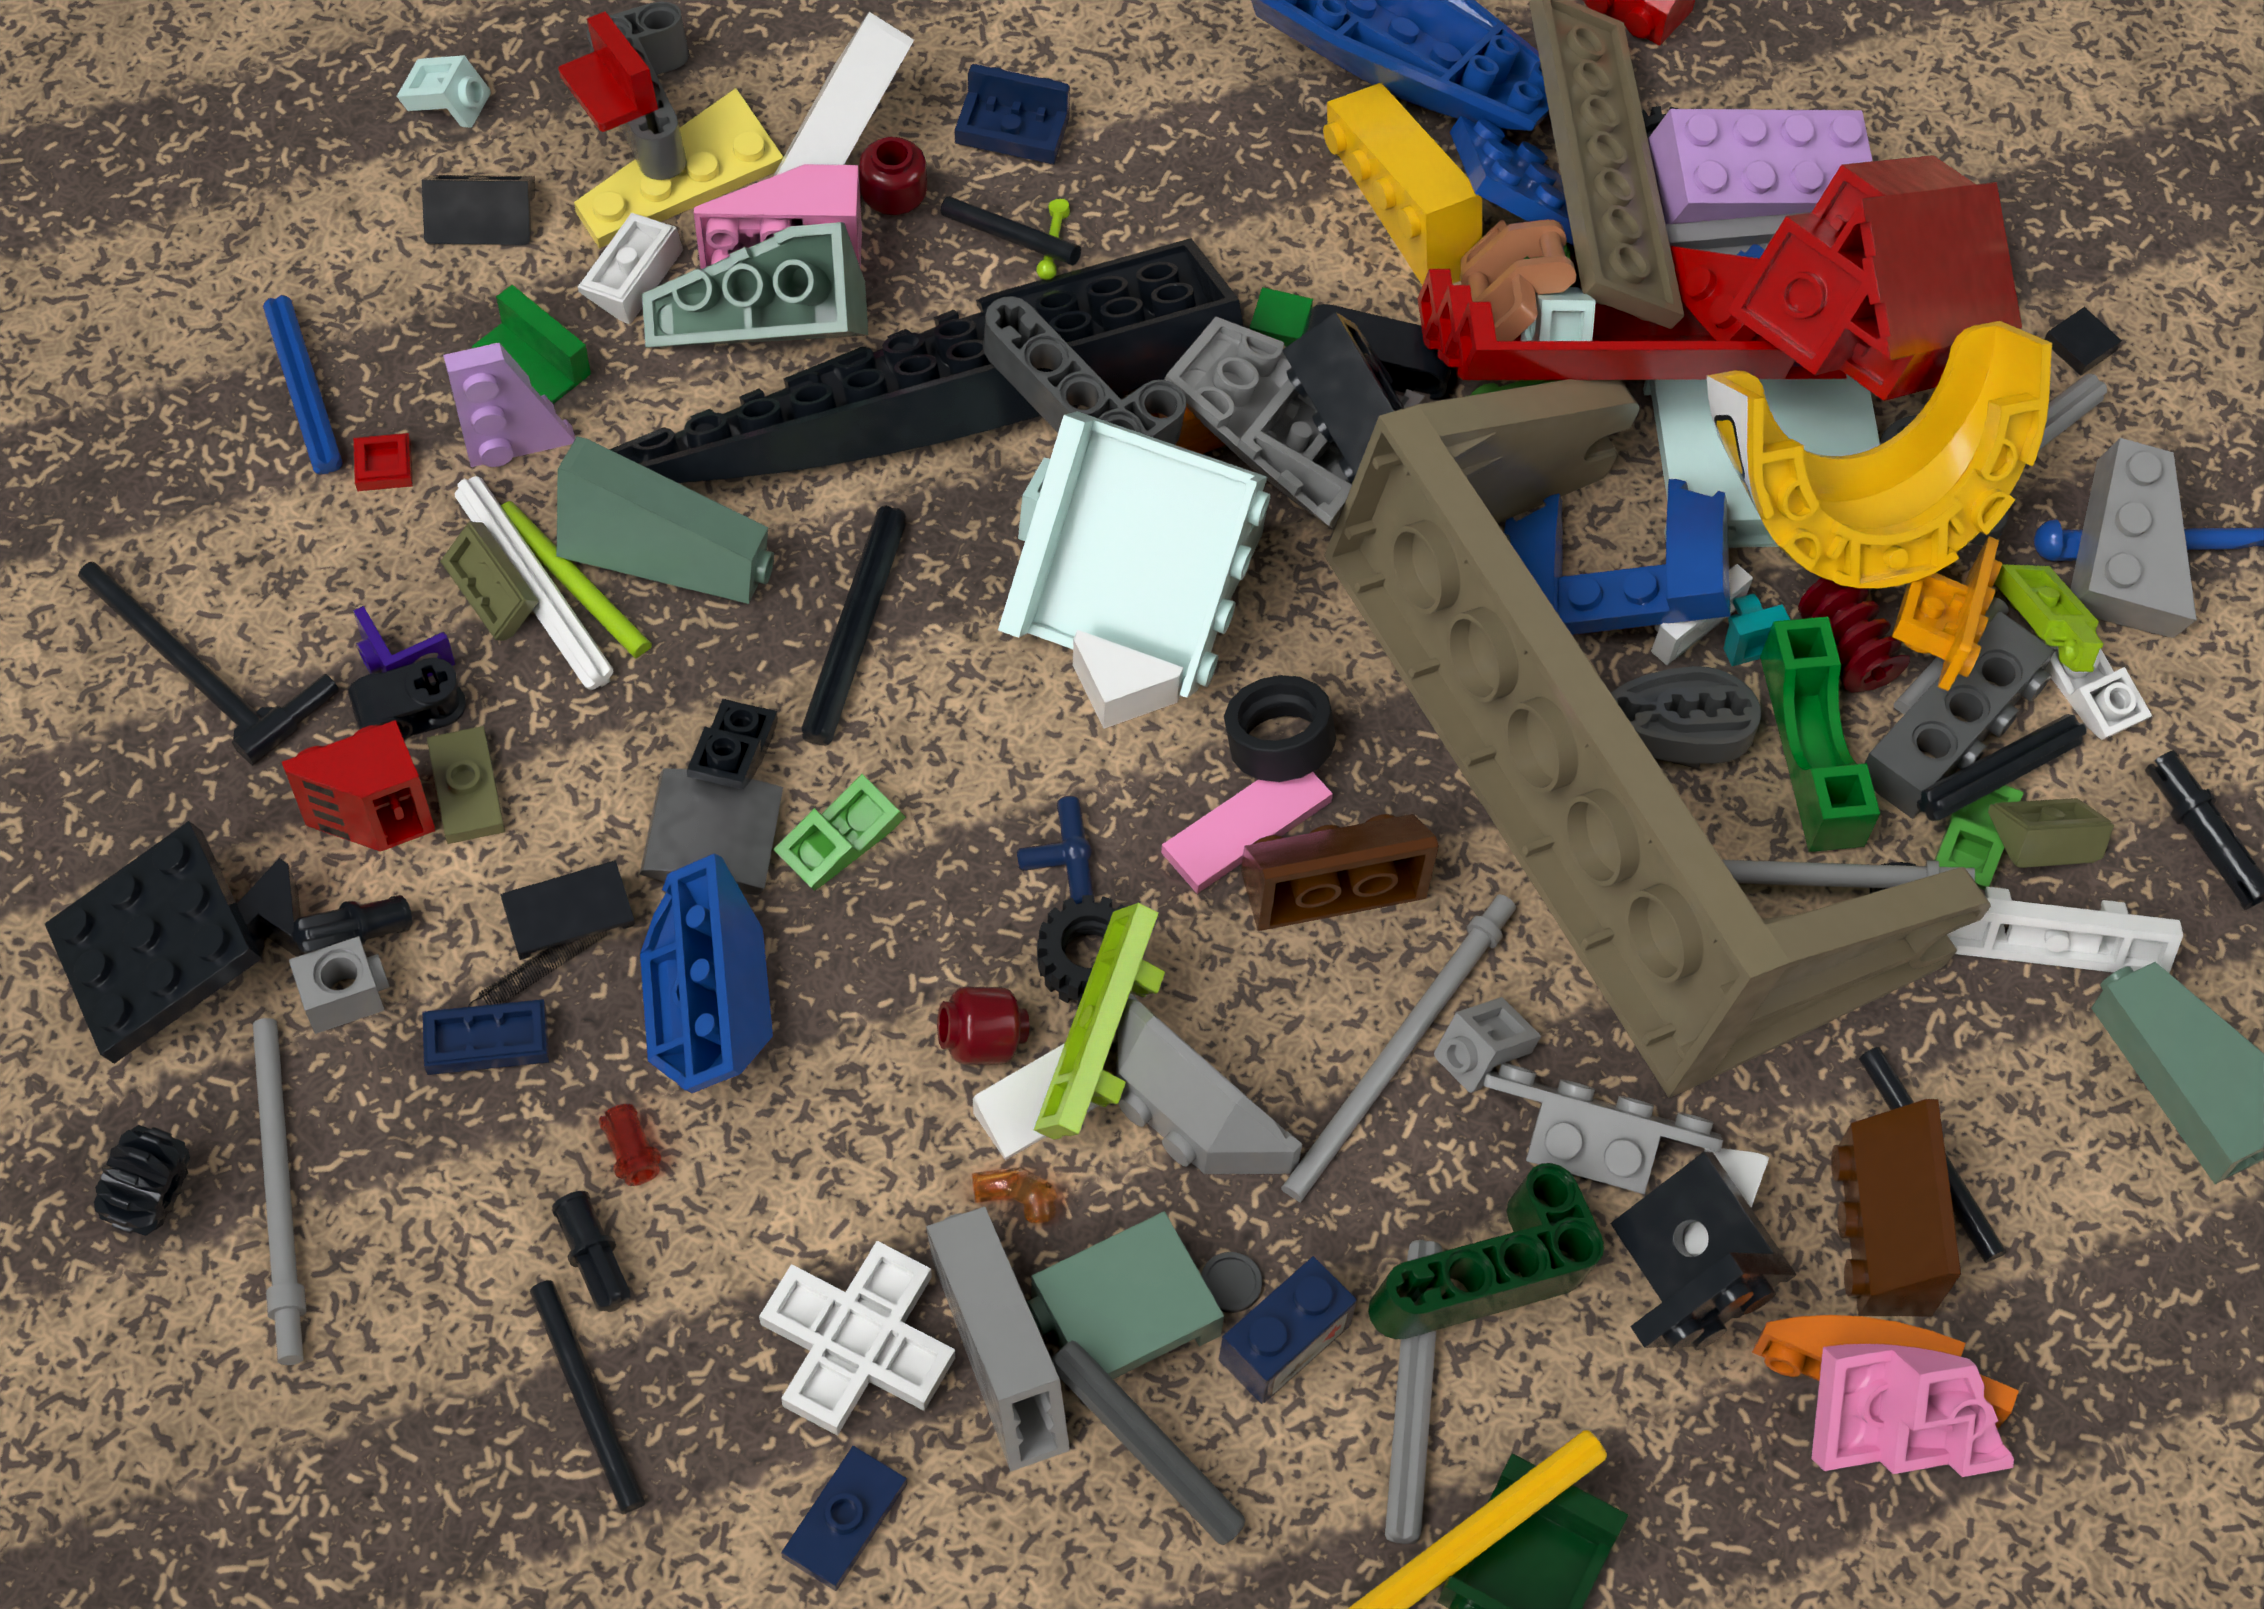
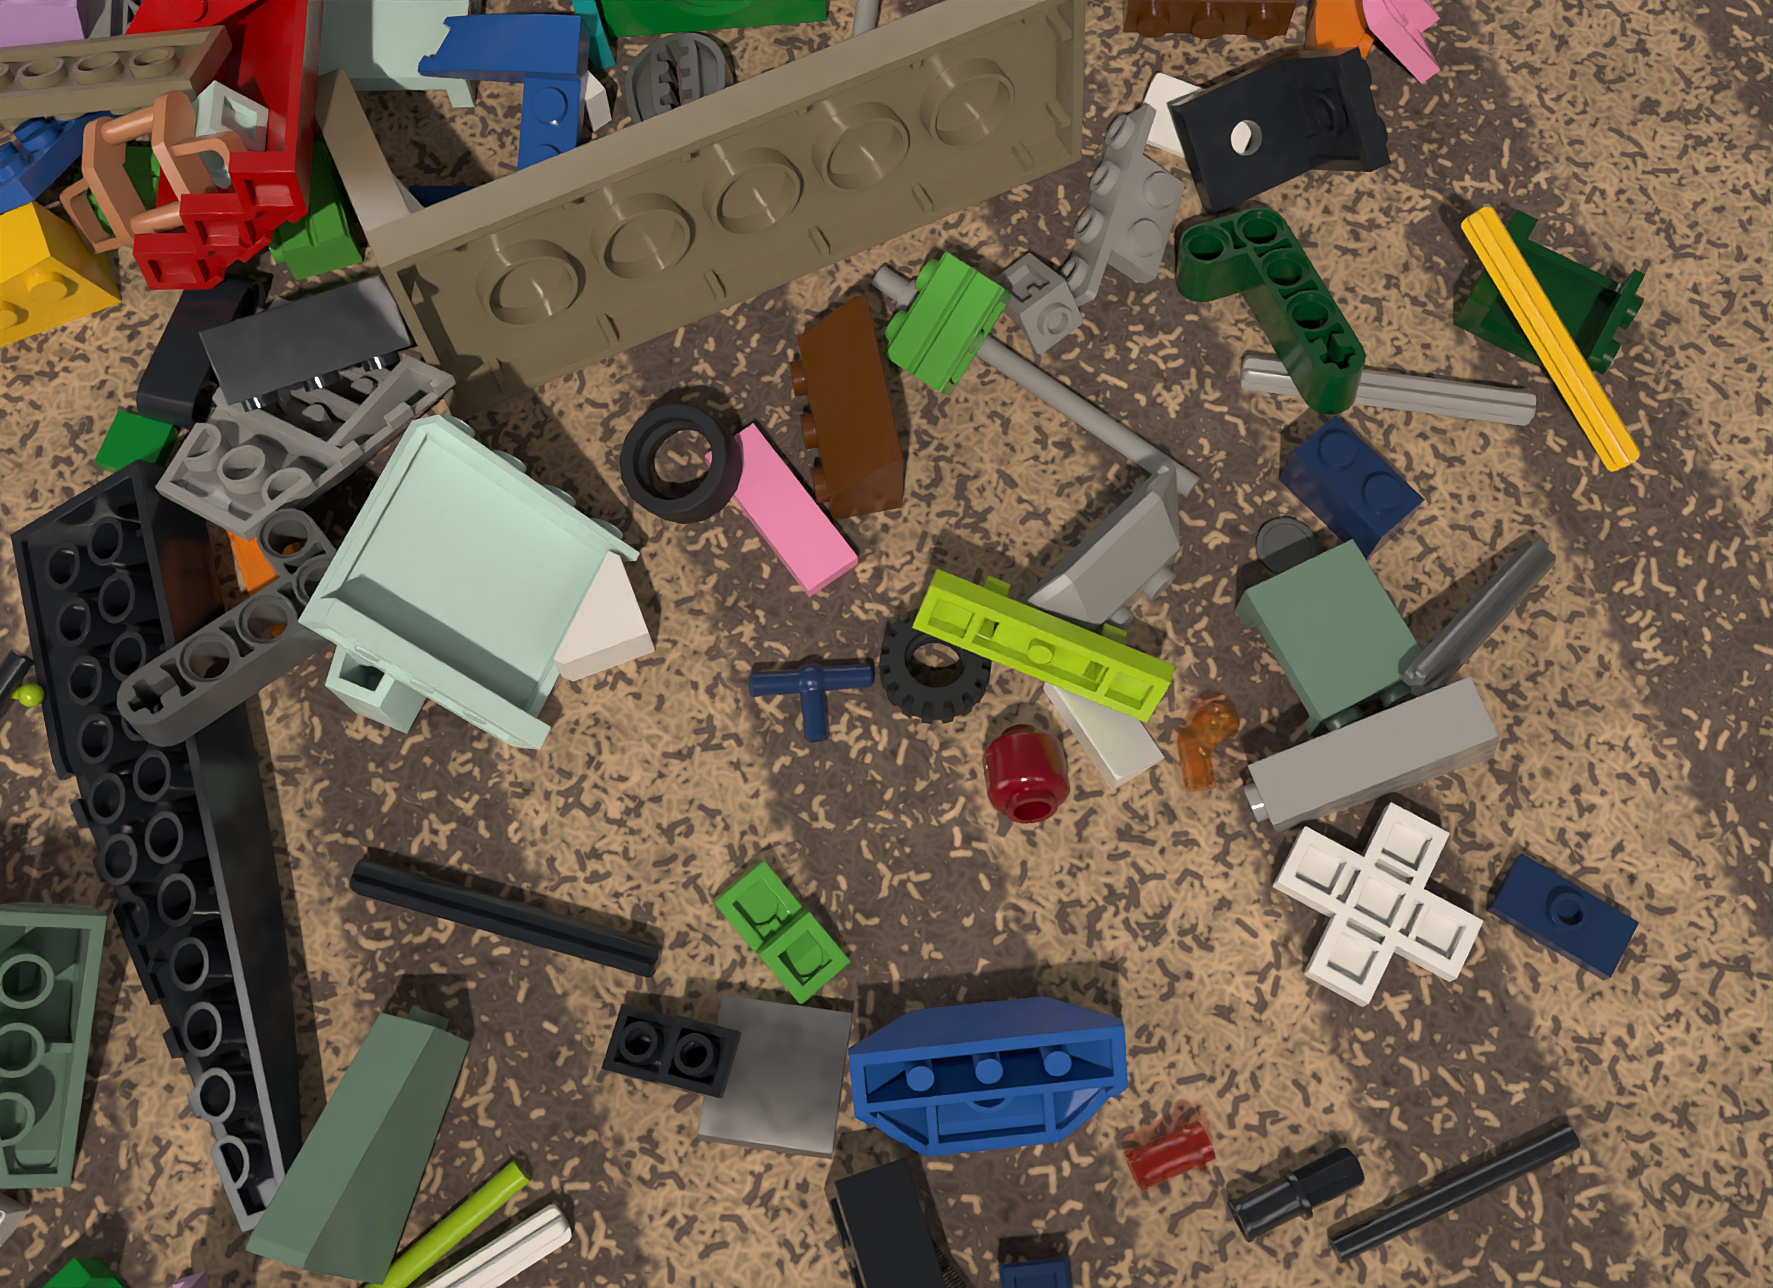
camera: 85 degrees left, 10 degrees up
(1442, 947) = (945, 322): none -> bright green brick

